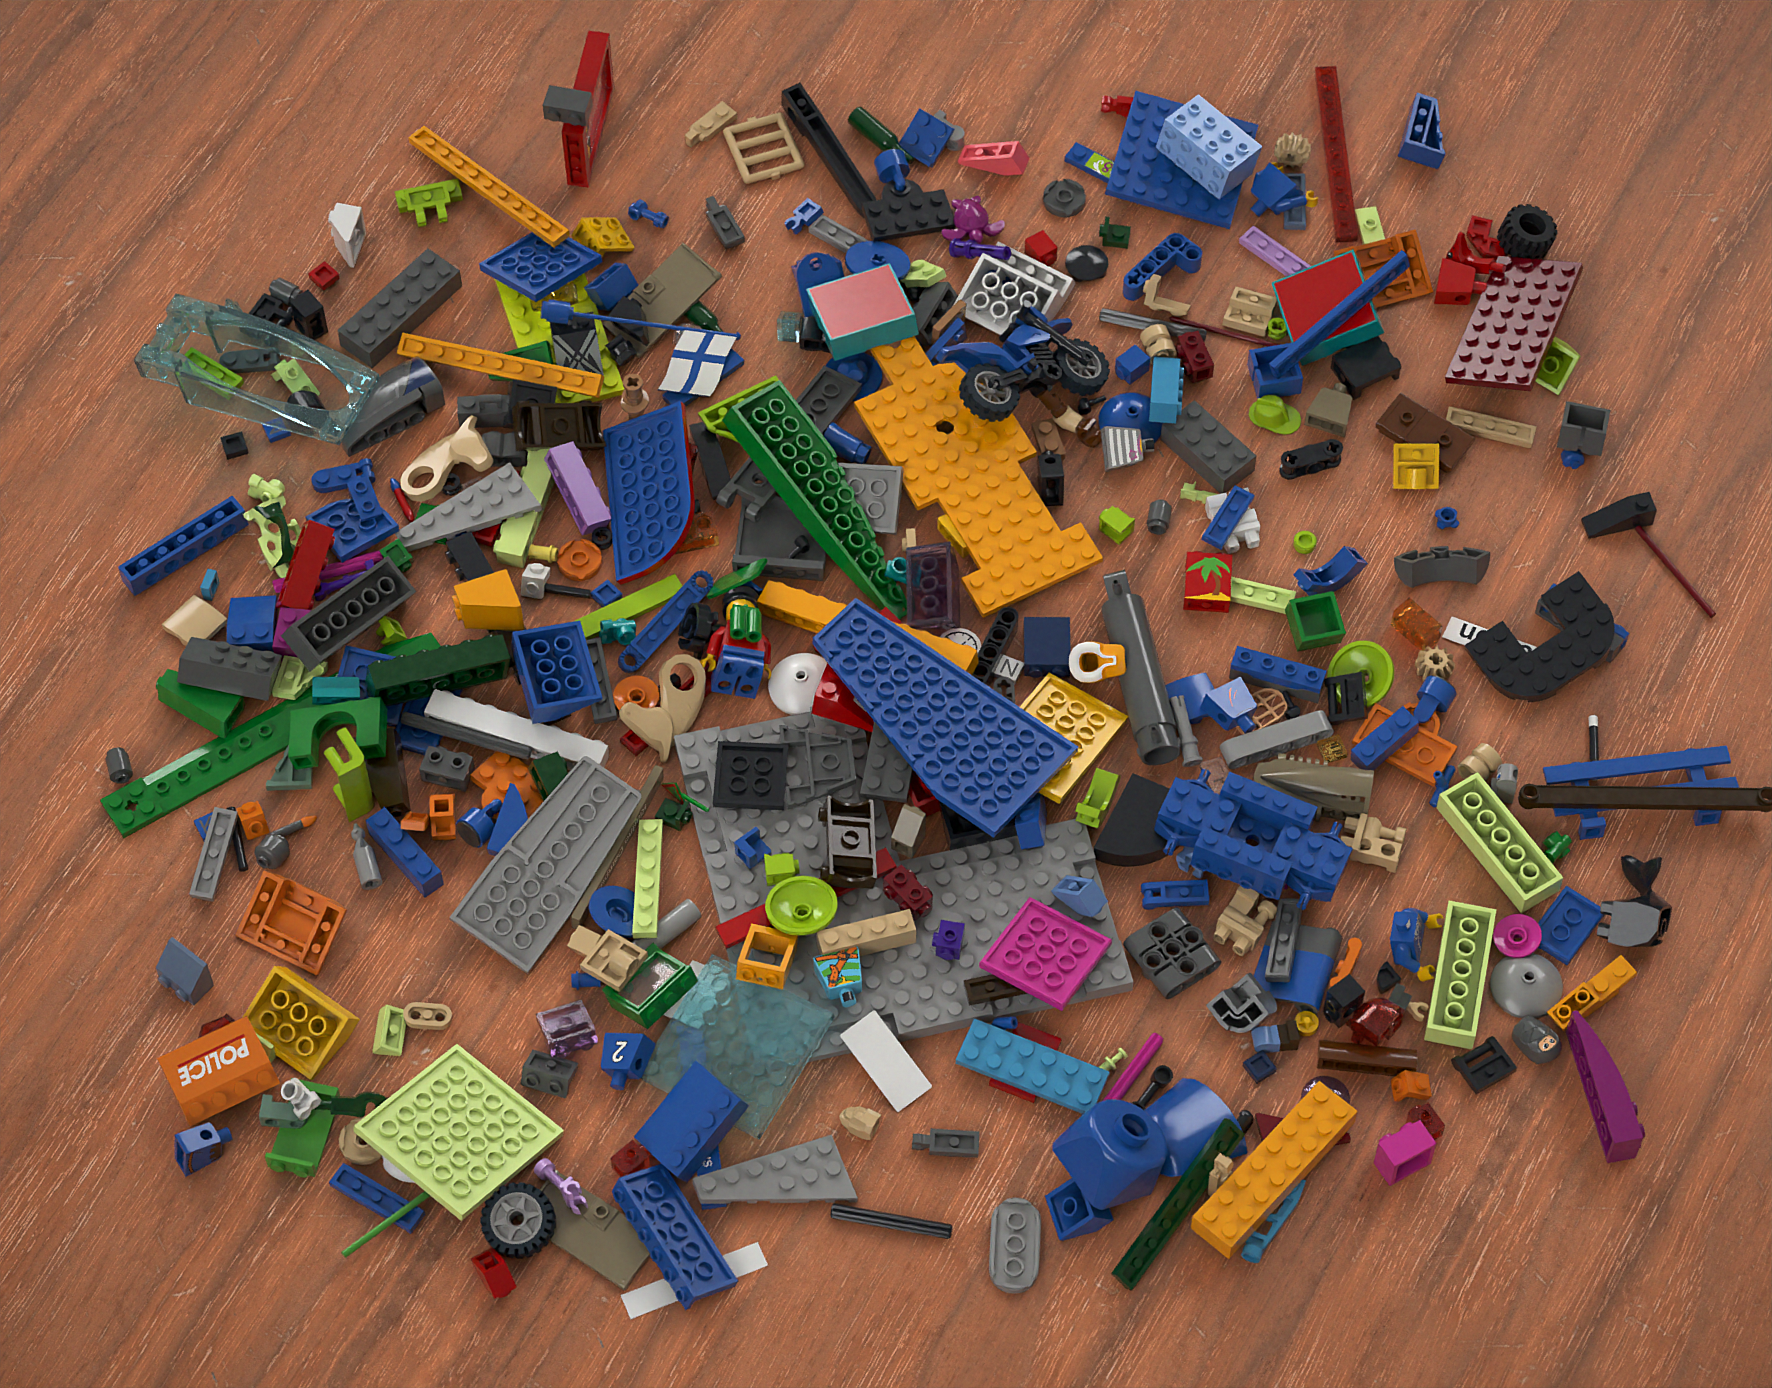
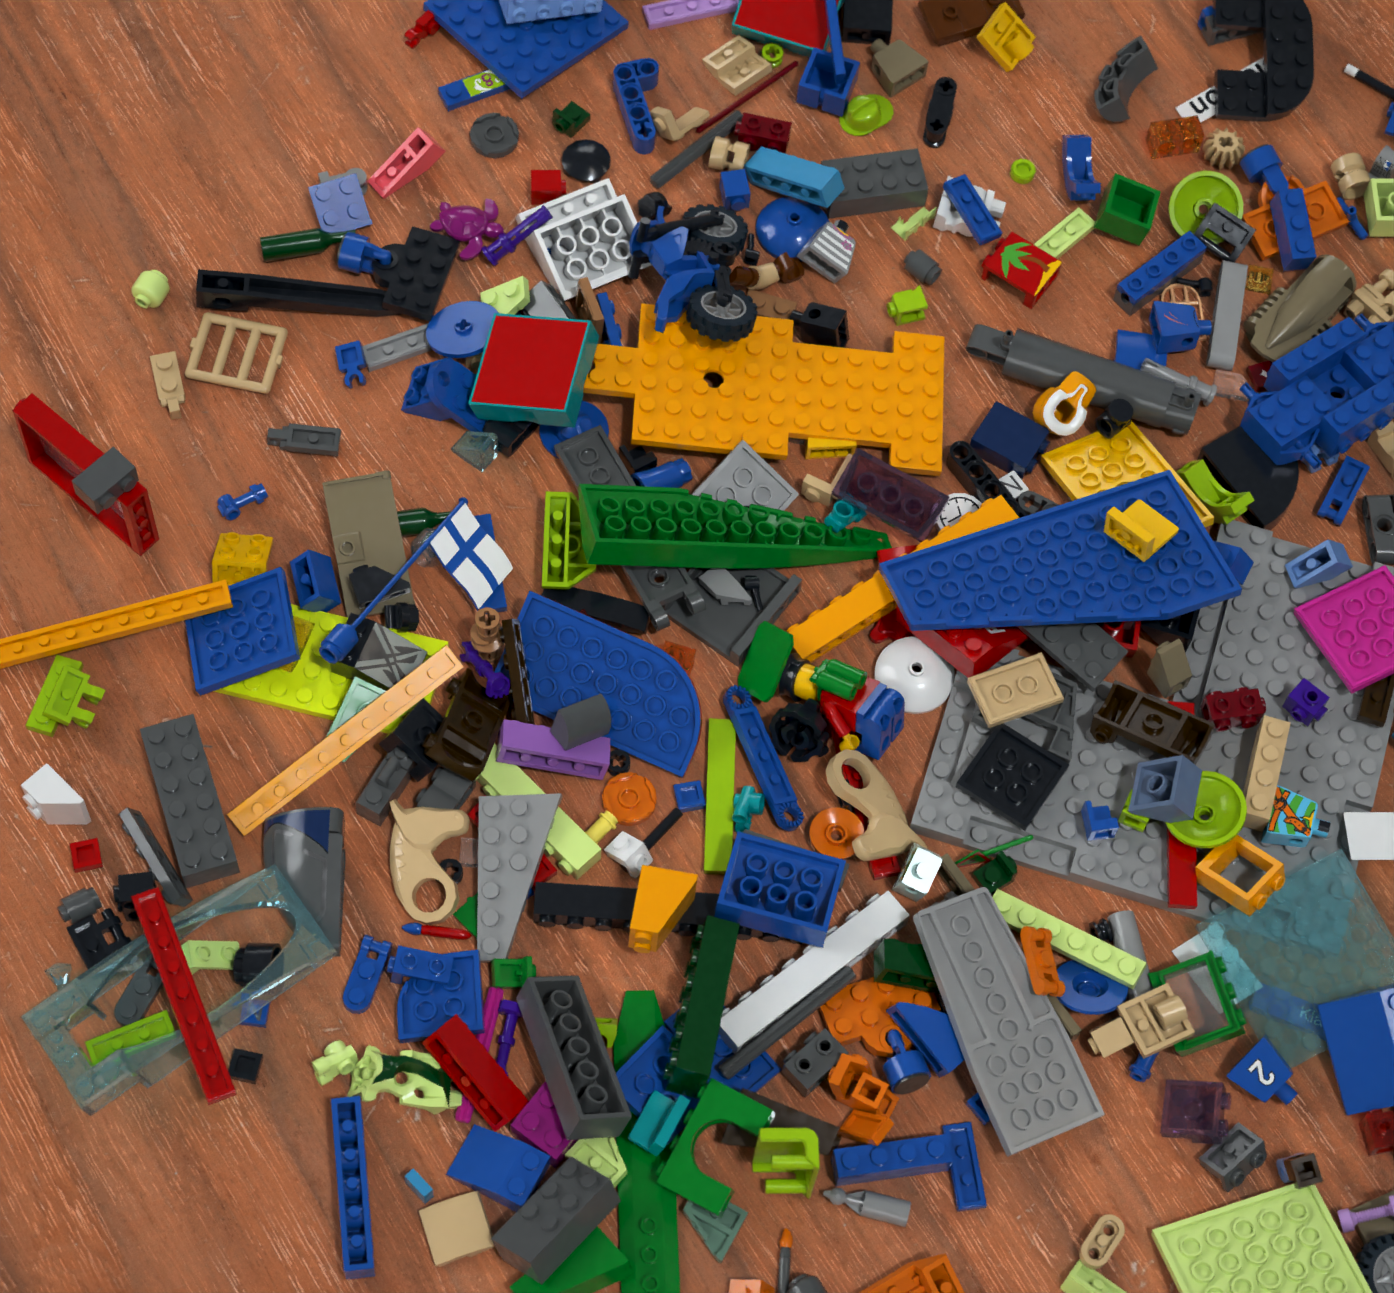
camera: 65 degrees left, 5 degrees up
(240, 365) = (183, 996): none -> red tile
(355, 299) = (151, 850): none -> dark grey plate
(432, 904) = (965, 1167): none -> blue tile
(447, 785) = (844, 1072): none -> orange bracket
(559, 1113) = (1300, 1169): none -> dark brown leg
(601, 425) = (497, 682): none -> dark purple piece
(604, 488) = (582, 722): none -> dark grey brick
(612, 864) = (1041, 961): none -> orange plate
(619, 434) = (515, 662): none -> dark brown plate
(633, 756) = (917, 872): none -> light aqua torso
(671, 901) = (1101, 930): none -> black bush
(774, 71) = (150, 289): none -> yellowish green head
(785, 528) = (724, 586): none -> light grey slope
(796, 869) = (1166, 789): none -> sand blue slope
(819, 740) = (1015, 690): none -> tan tile
(852, 423) = (637, 459): none -> black panel
(999, 743) = (1139, 529): none -> yellow bracket
(1080, 322) = (649, 204): none -> black piece
(1111, 699) = (1114, 418): none -> black piece
(1446, 512) = (1070, 44): blue plate -> none

